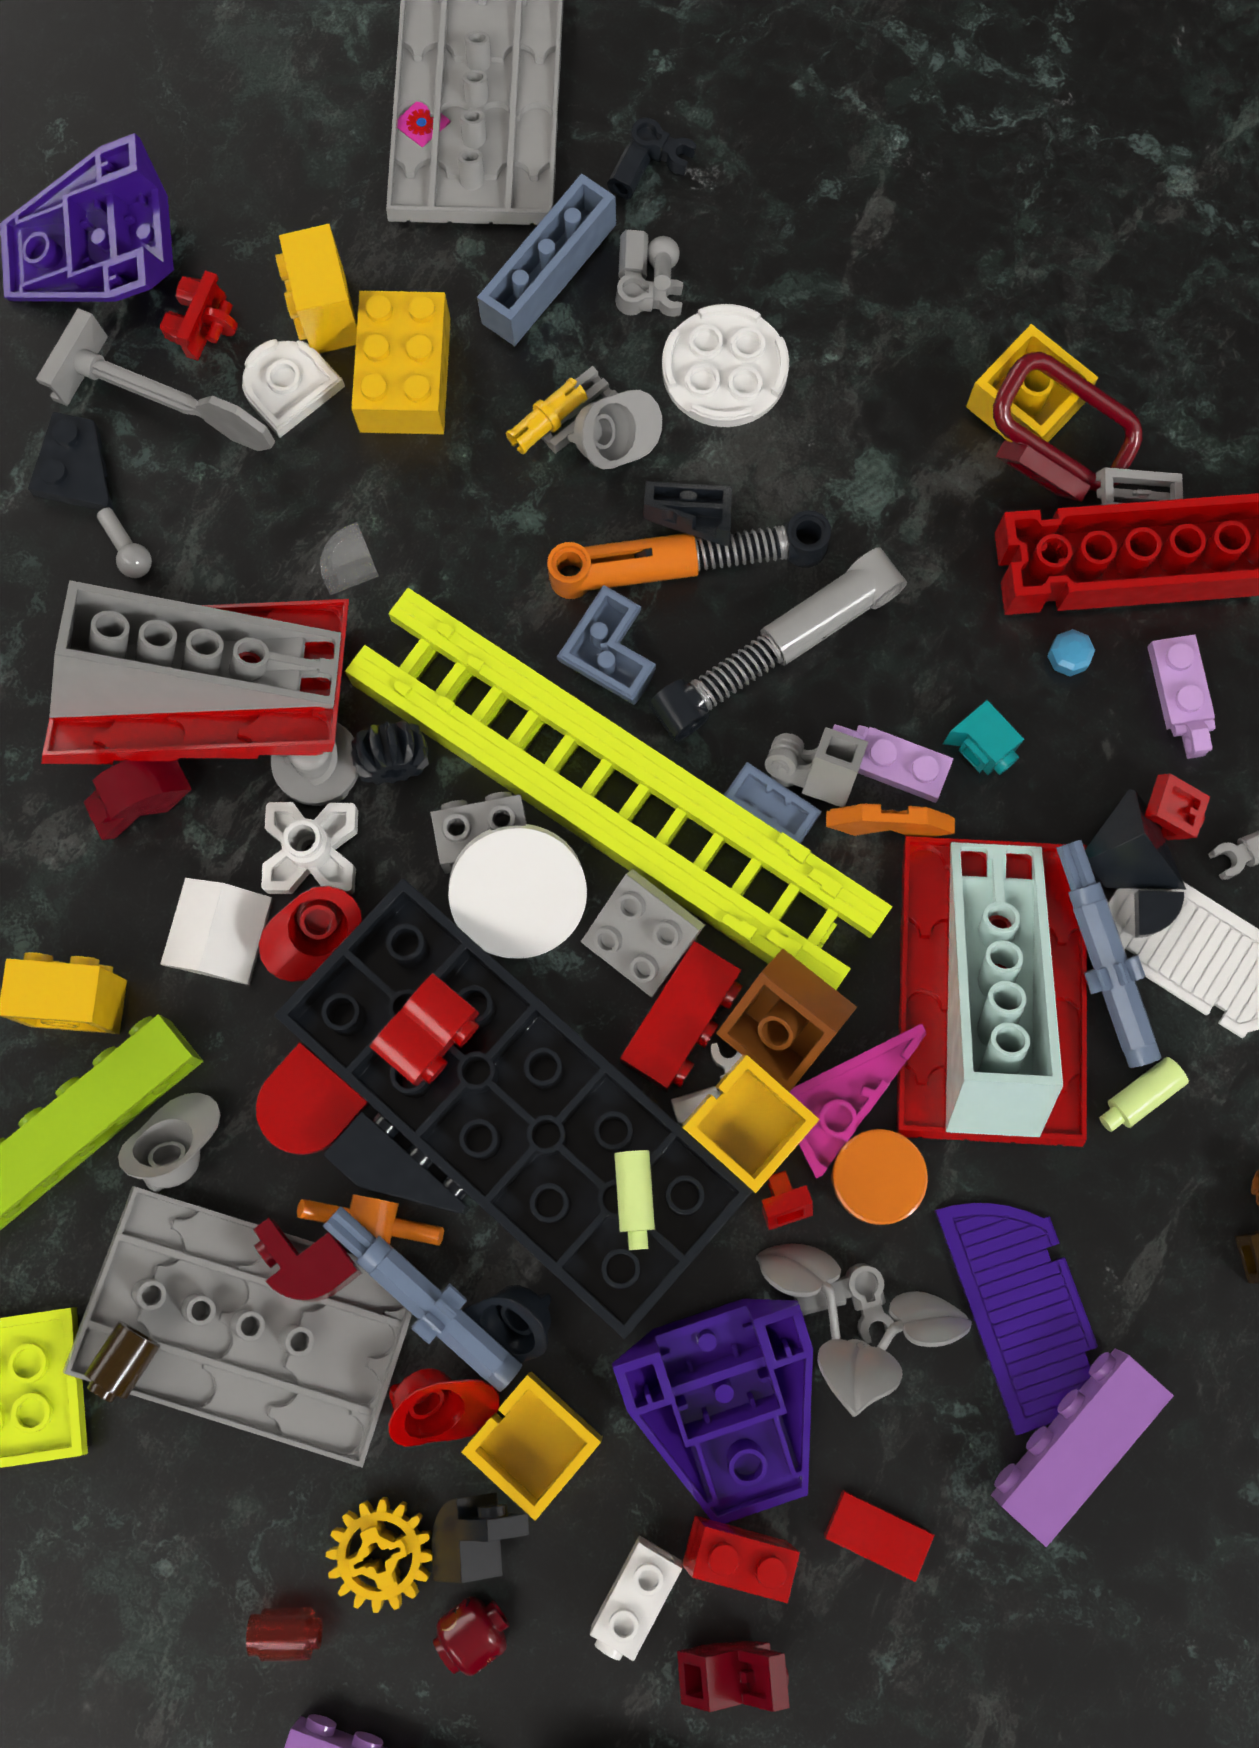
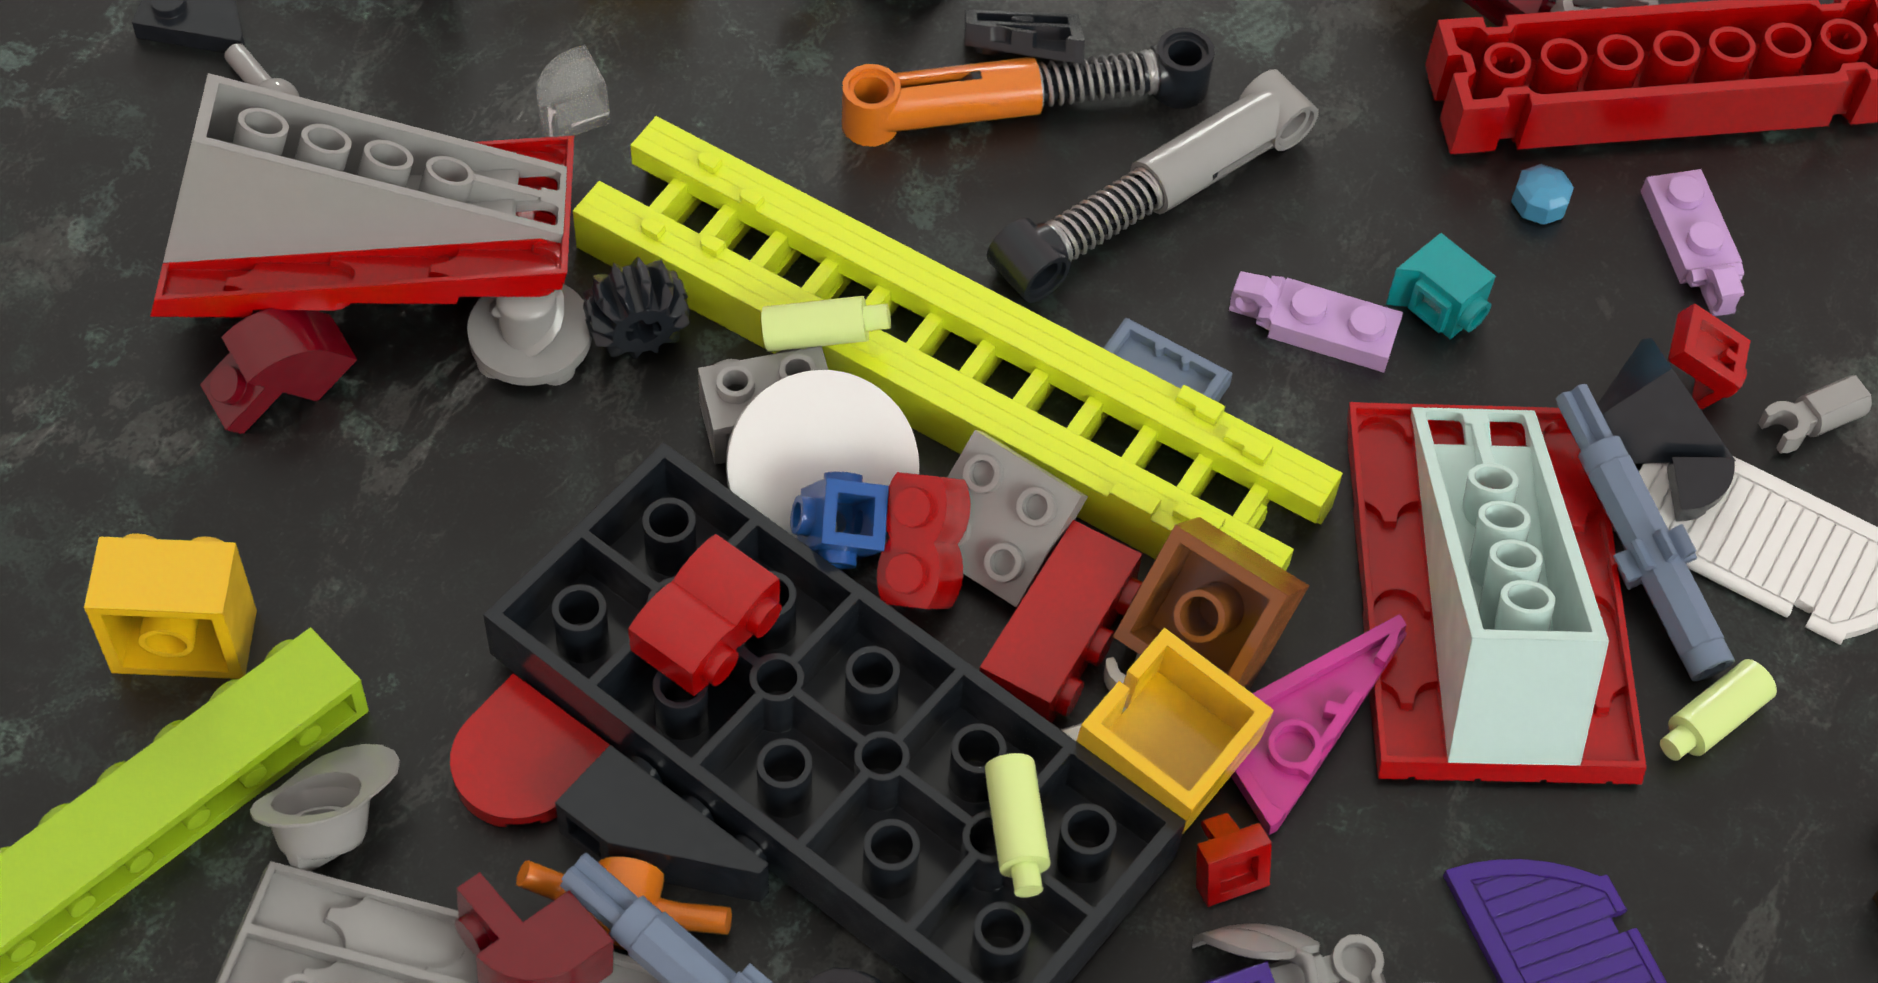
camera: 10 degrees left, 20 degrees down
(217, 930) = (390, 540): white slope -> none
(293, 864) = (523, 427): white plant -> none
(308, 932) = (524, 519): red piece -> none
(519, 781) = (821, 323): none -> yellowish green cylinder
(539, 950) = (856, 508): none -> blue brick
(585, 957) = (923, 555): none -> red brick
(597, 652) = (916, 195): sand blue brick -> none
(822, 772) = (1234, 325): light grey brick -> none
(870, 818) = (1301, 374): orange tile -> none
(879, 1177) = (1360, 825): orange tile -> none

